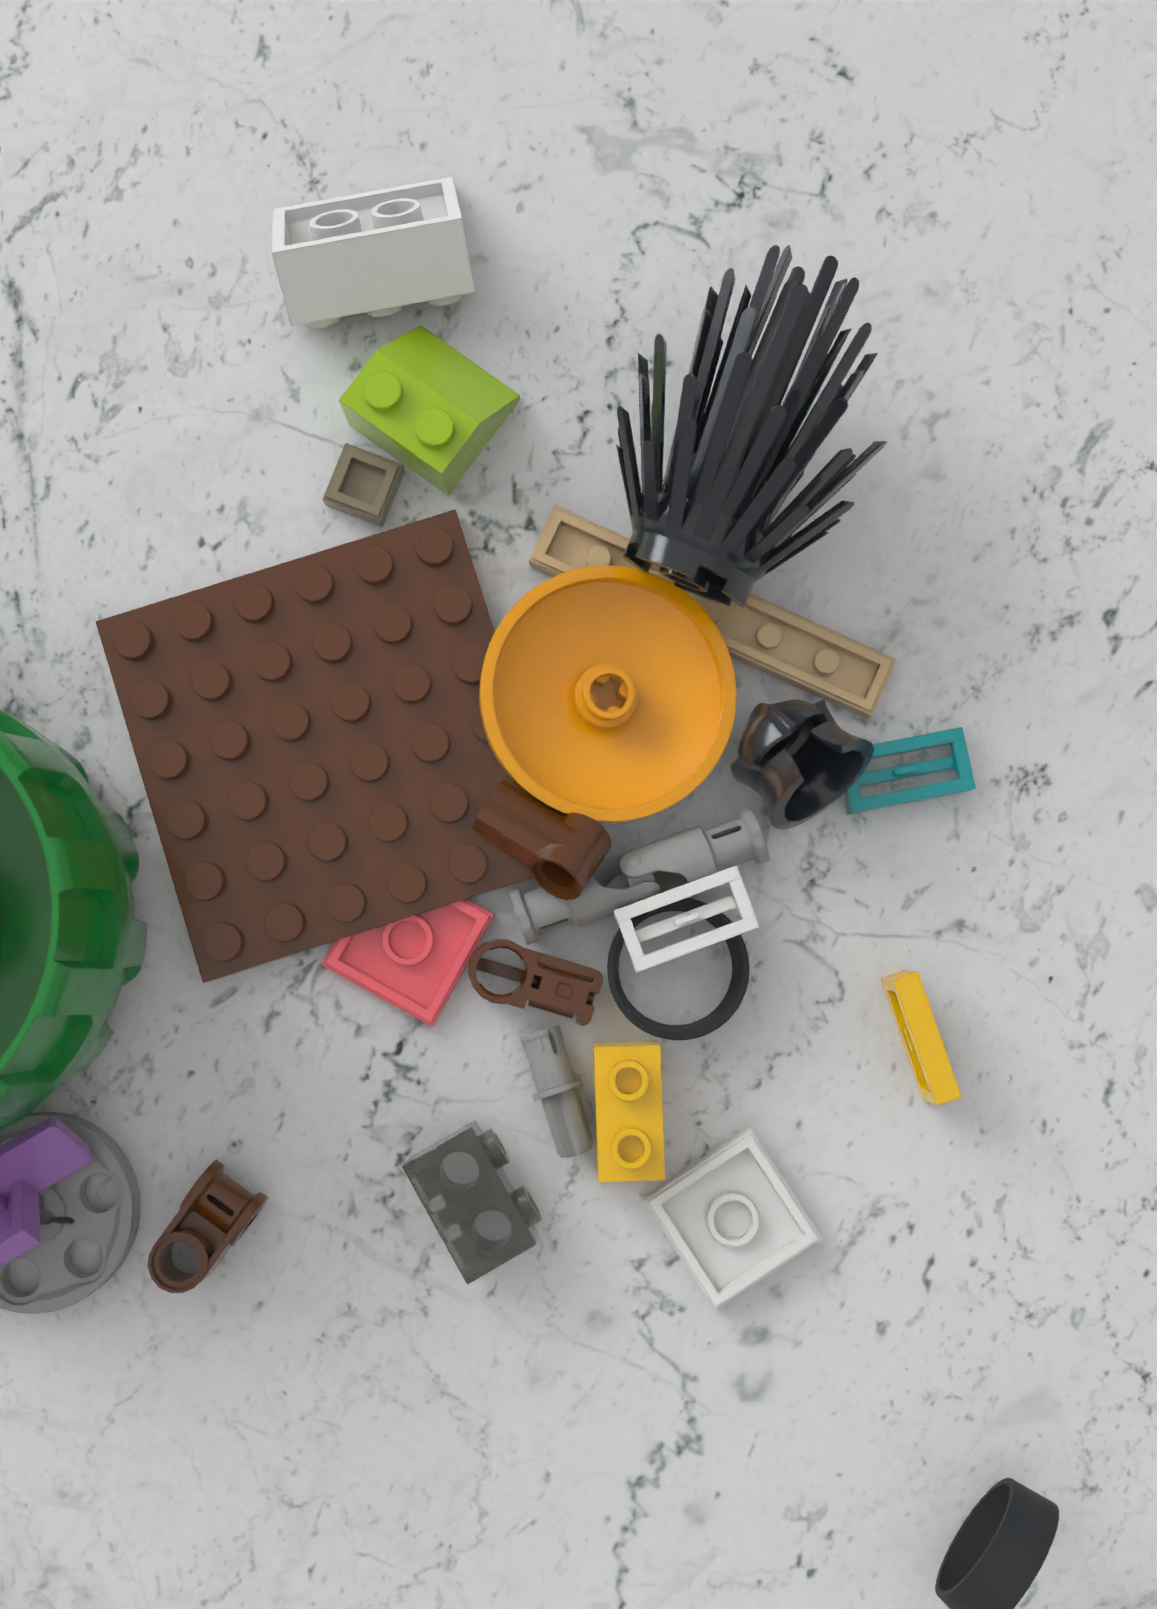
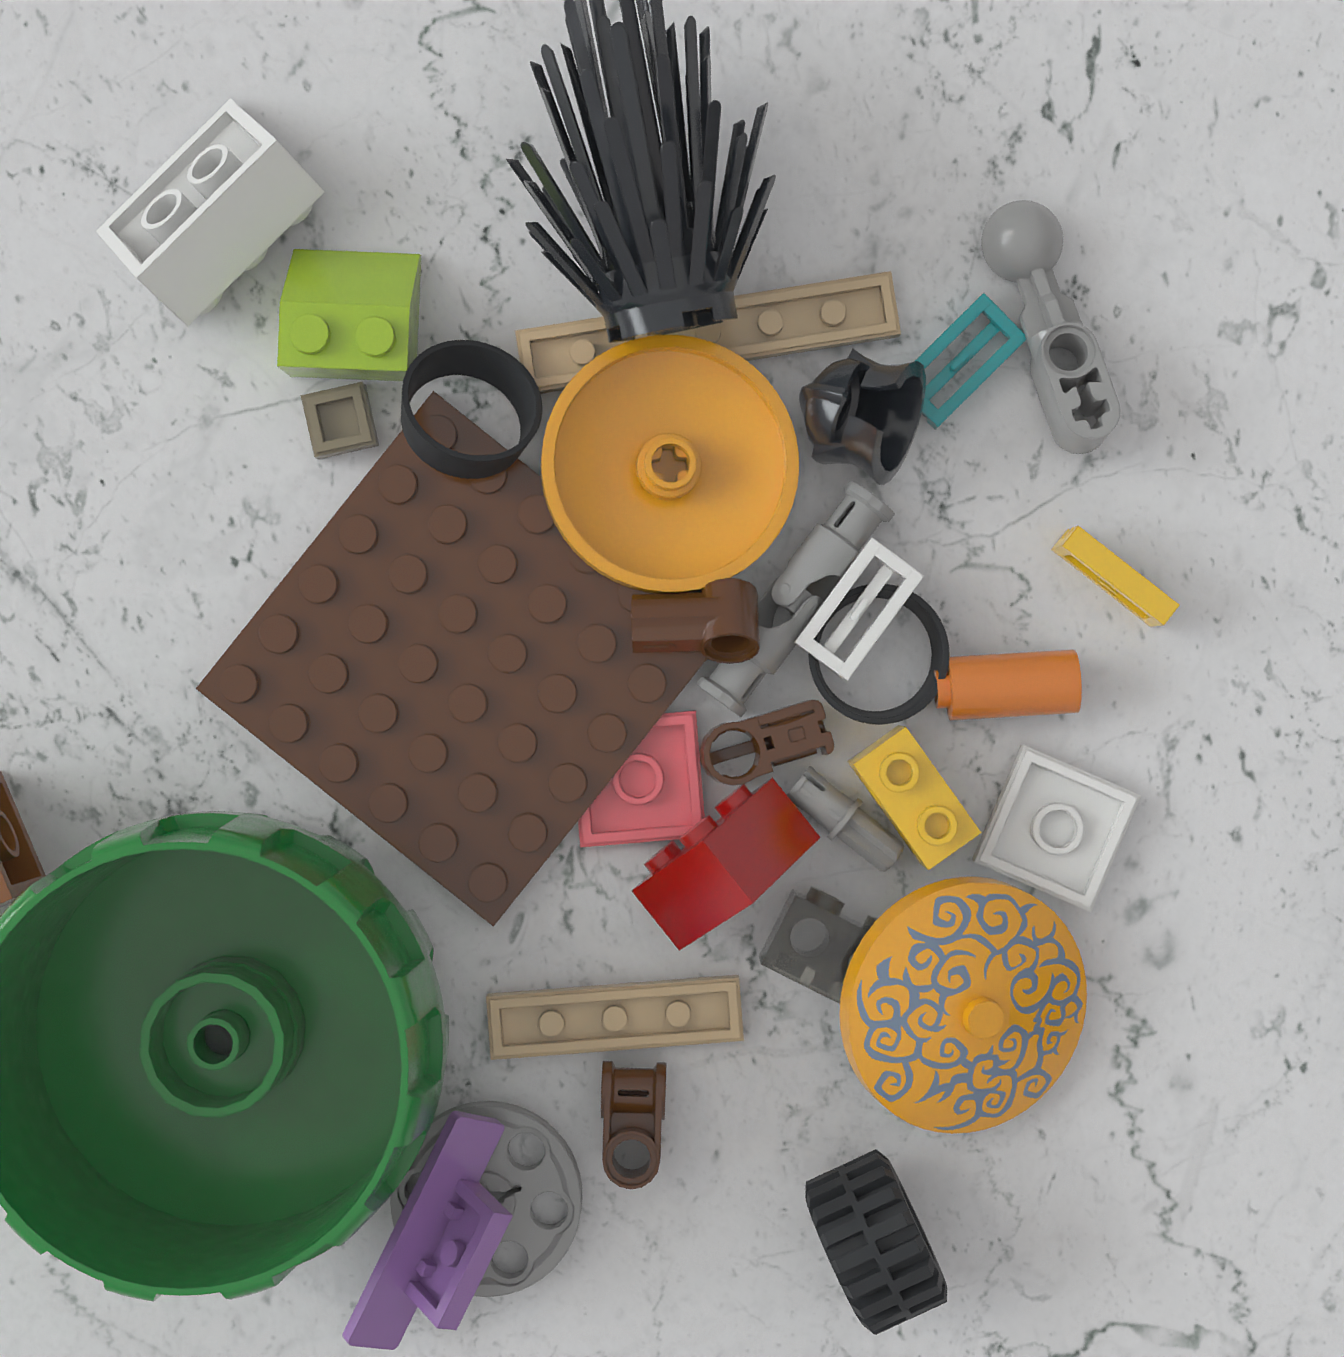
camera: 30 degrees left, 5 degrees up
(252, 1128) = (614, 1017): none -> tan tile
(335, 1482) = (875, 1242): none -> black tyre
(430, 1058) = (724, 862): none -> red brick
(504, 506) = (484, 363): none -> black tyre
(551, 1320) = (963, 1004): none -> light orange dish
(773, 1070) = (1010, 685): none -> orange brick
(1018, 711) = (1023, 246): none -> light grey beam

